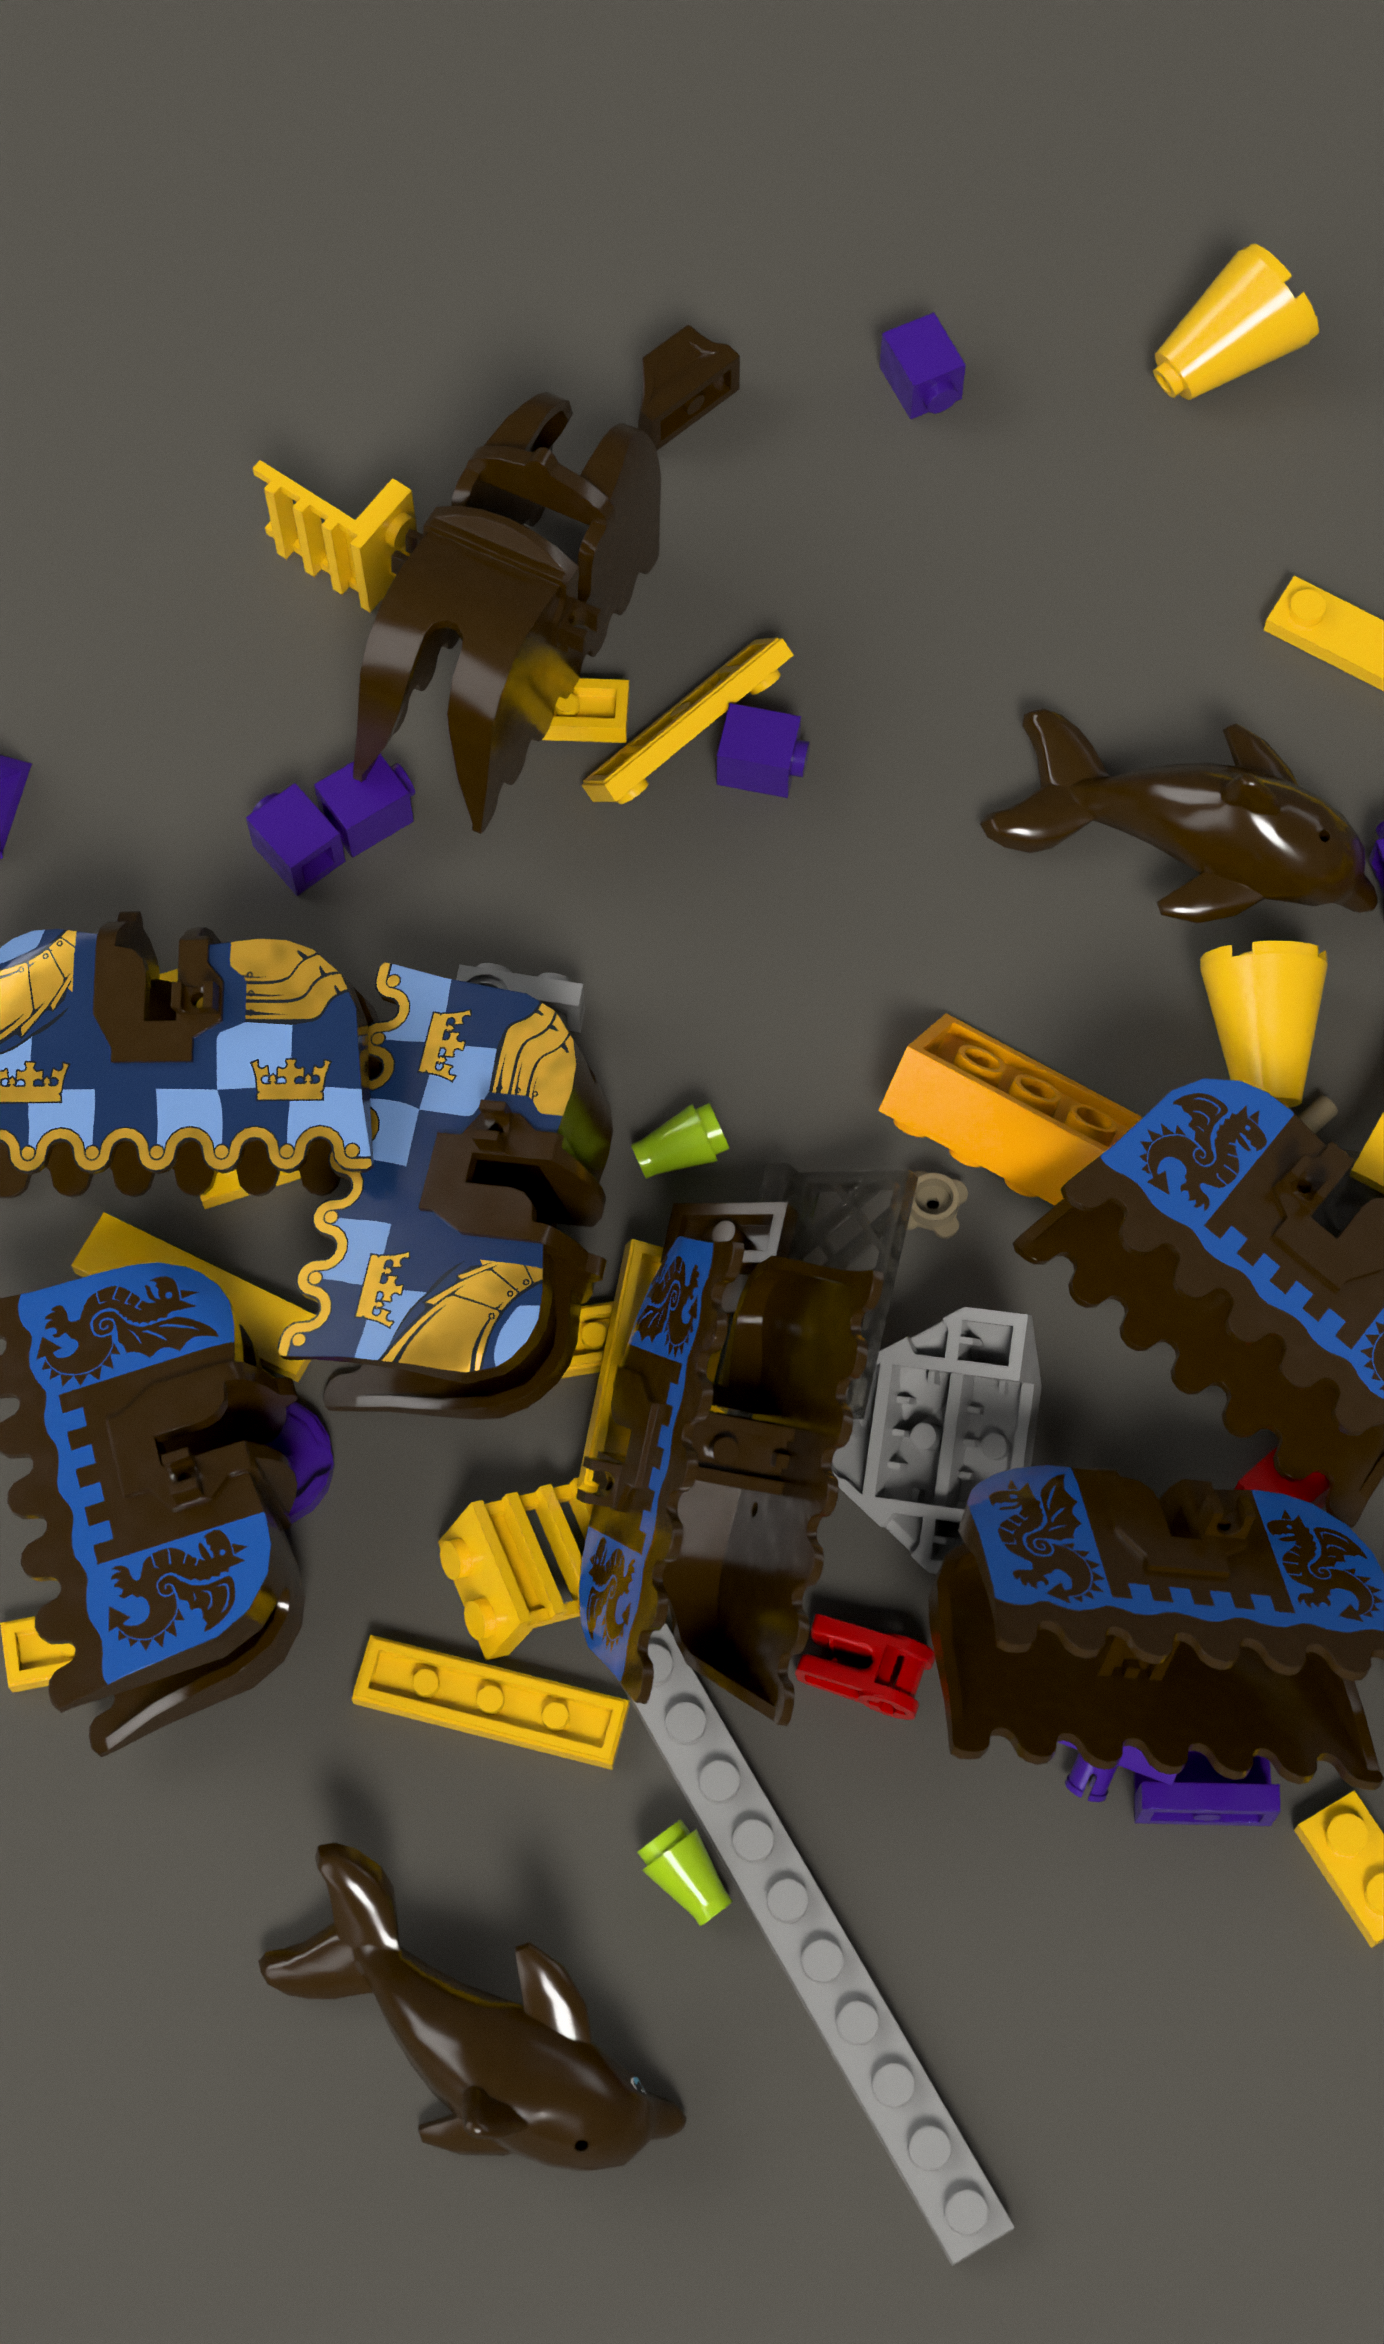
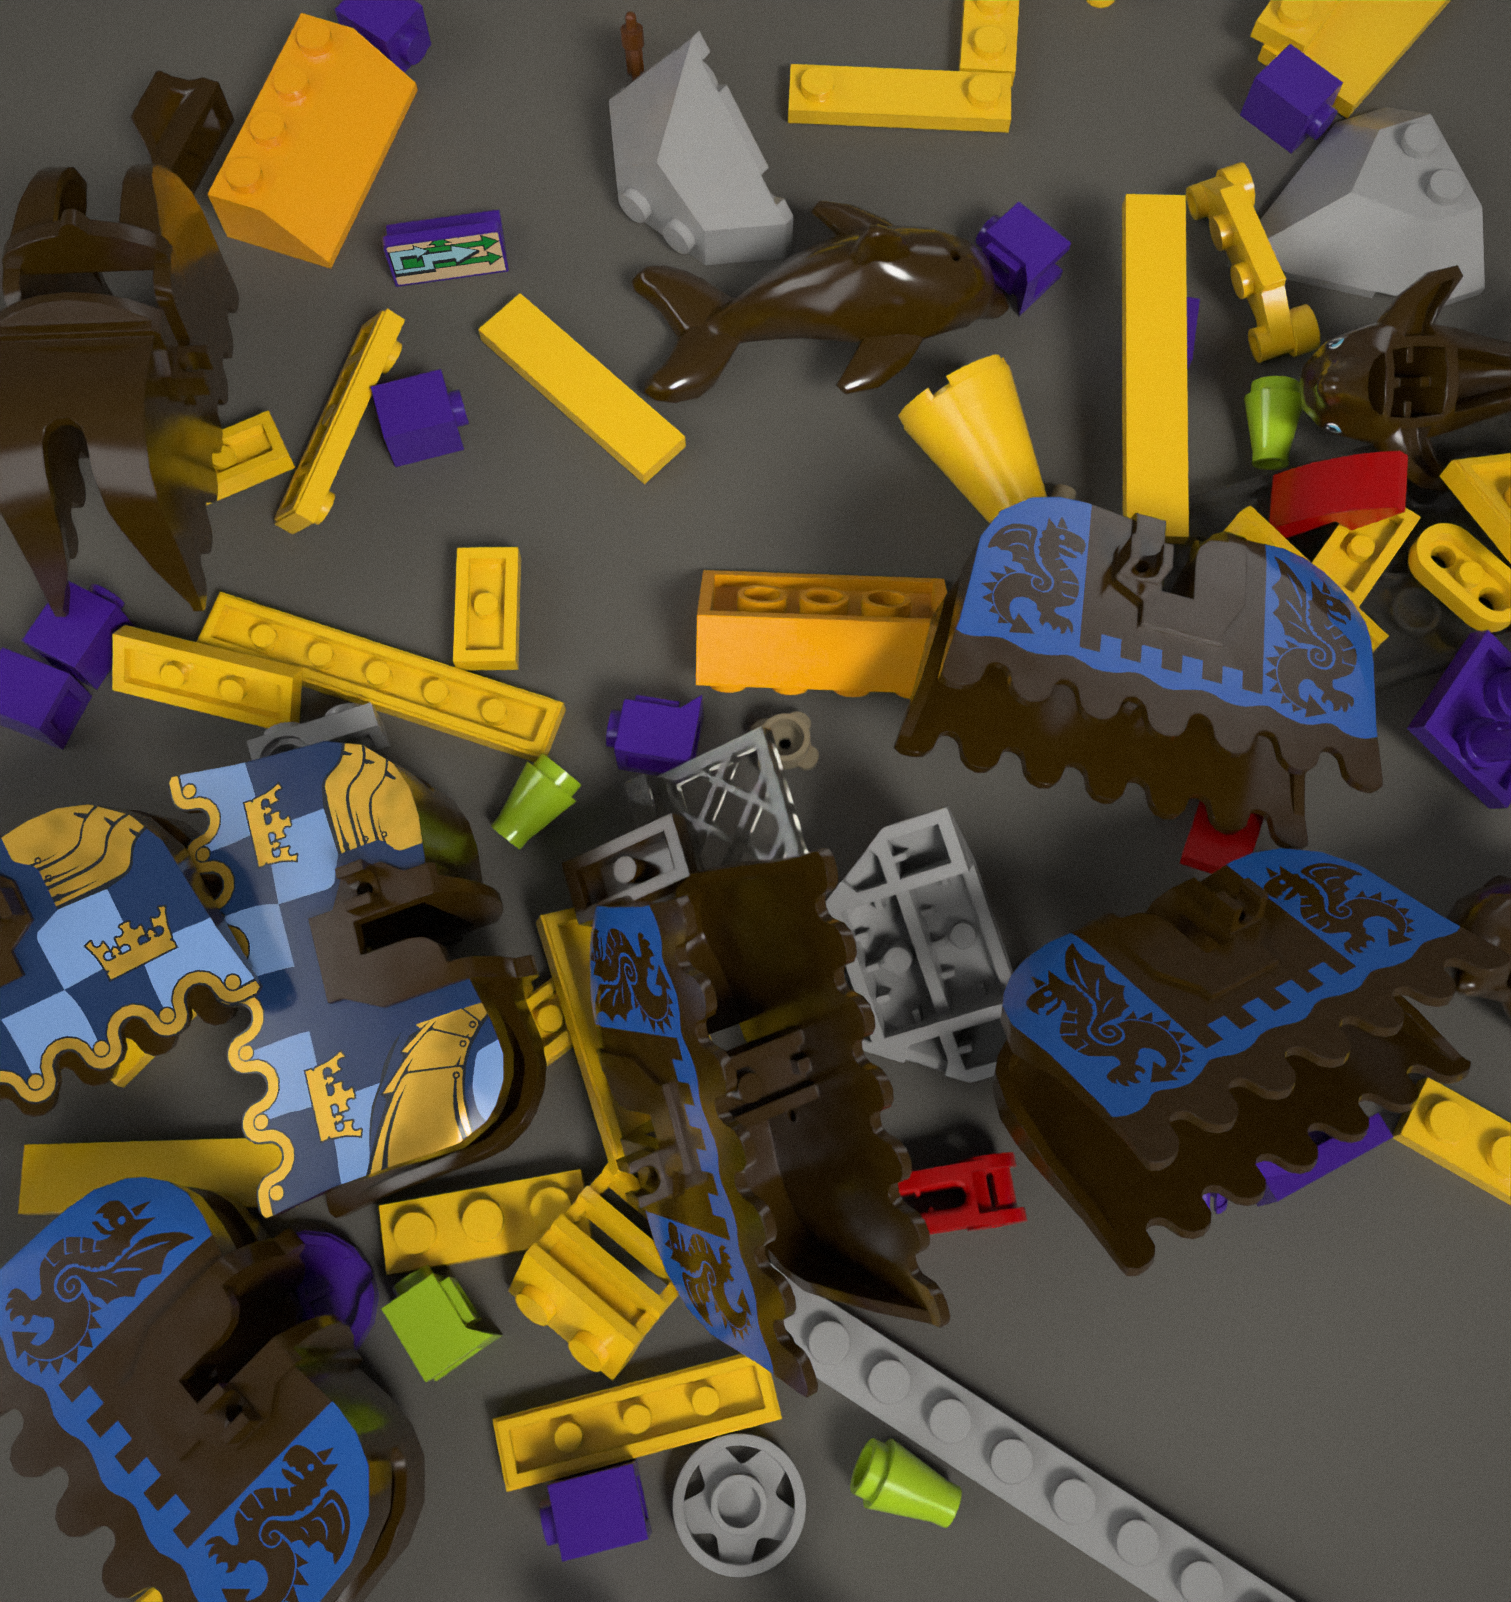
camera: 30 degrees left, 5 degrees up
(367, 1533) = (436, 1323): none -> lime window
(418, 1749) = (596, 1511): none -> dark purple brick
(436, 1468) = (476, 1222): none -> yellow plate
(451, 893) = (205, 678): none -> yellow plate
(538, 1815) = (739, 1505): none -> light grey wheel
(607, 967) = (389, 678): none -> yellow tile
(730, 952) = (487, 608): none -> yellow plate
(798, 449) = (312, 143): none -> light orange slope
(819, 1135) = (654, 734): none -> dark purple window
(870, 602) = (446, 248): none -> panel
(925, 793) = (582, 388): none -> yellow tile
(1133, 640) = (694, 164): none -> light grey wedge
(1143, 494) = (633, 42): none -> reddish brown piece

